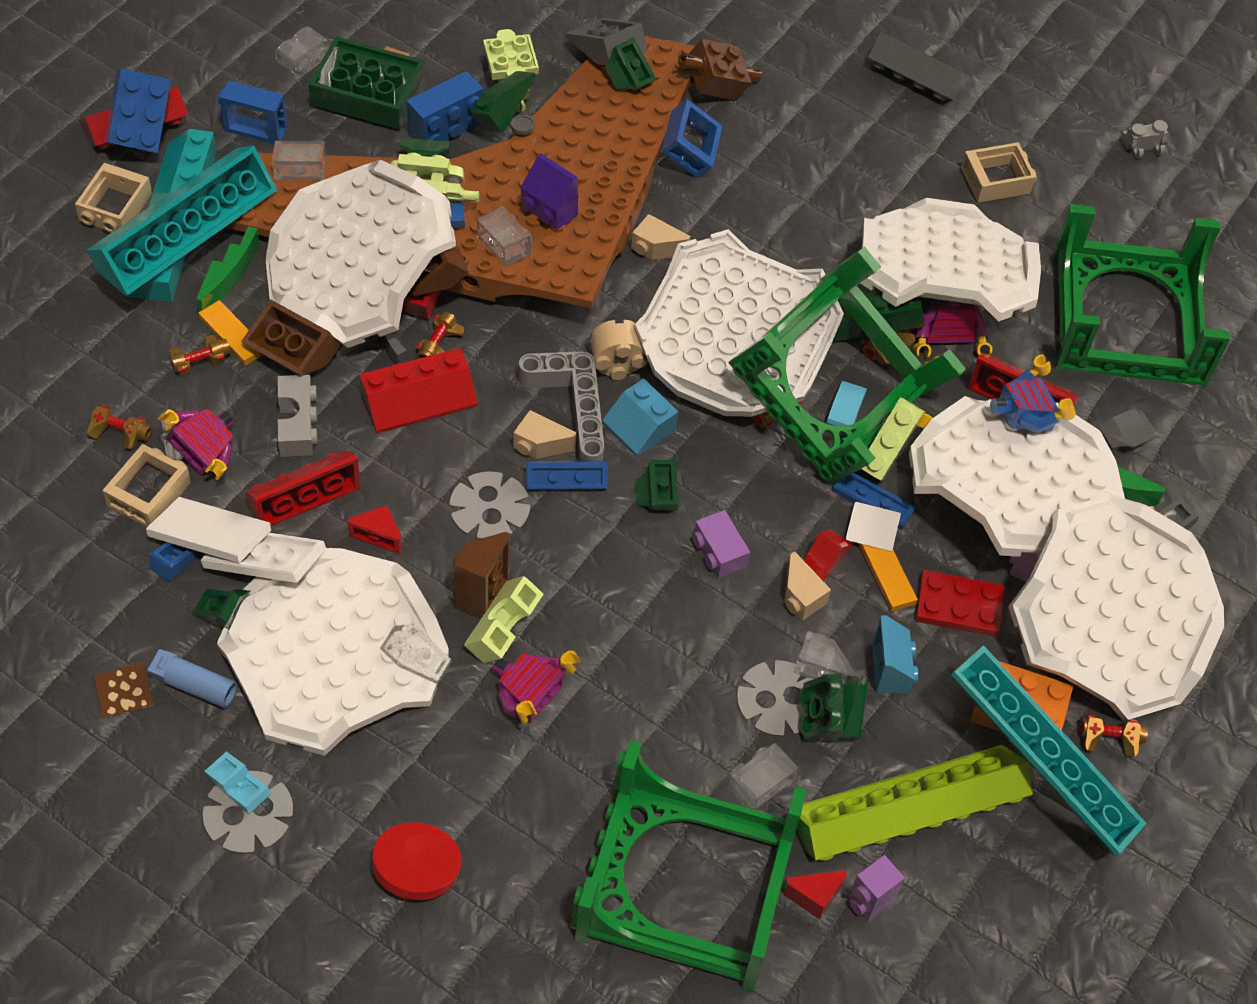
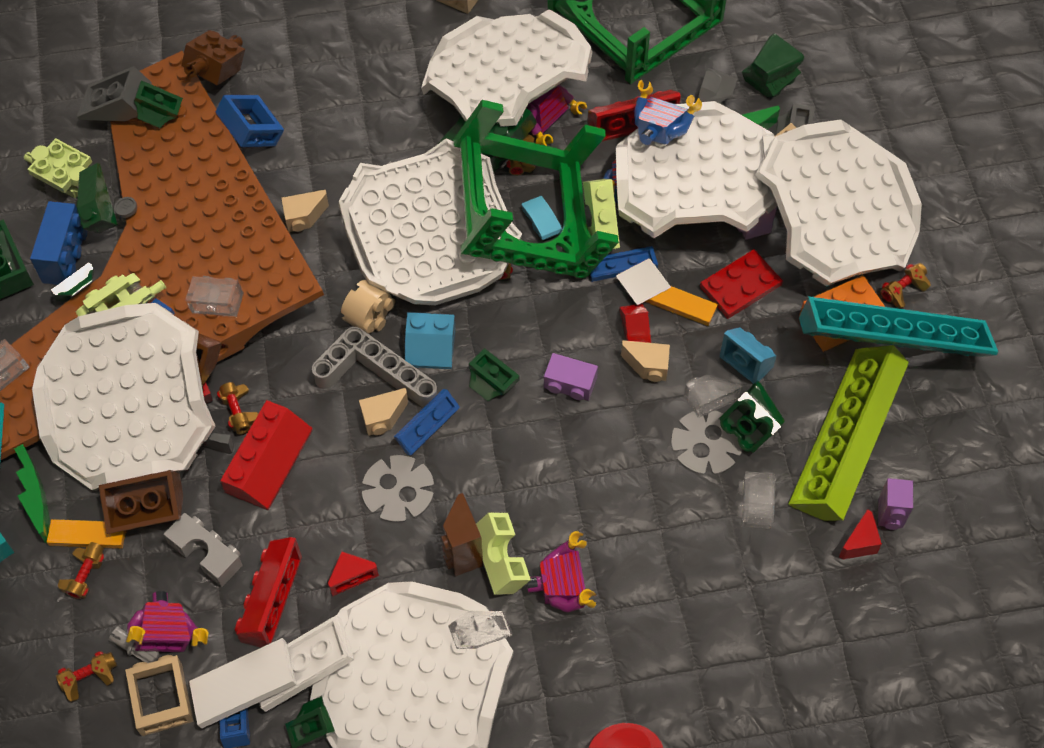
camera: 40 degrees left, 5 degrees up
(550, 192) = (213, 238): dark purple slope -> none
(644, 789) = (763, 679): green arch -> none
(1202, 456) = (774, 67): none -> dark green piece

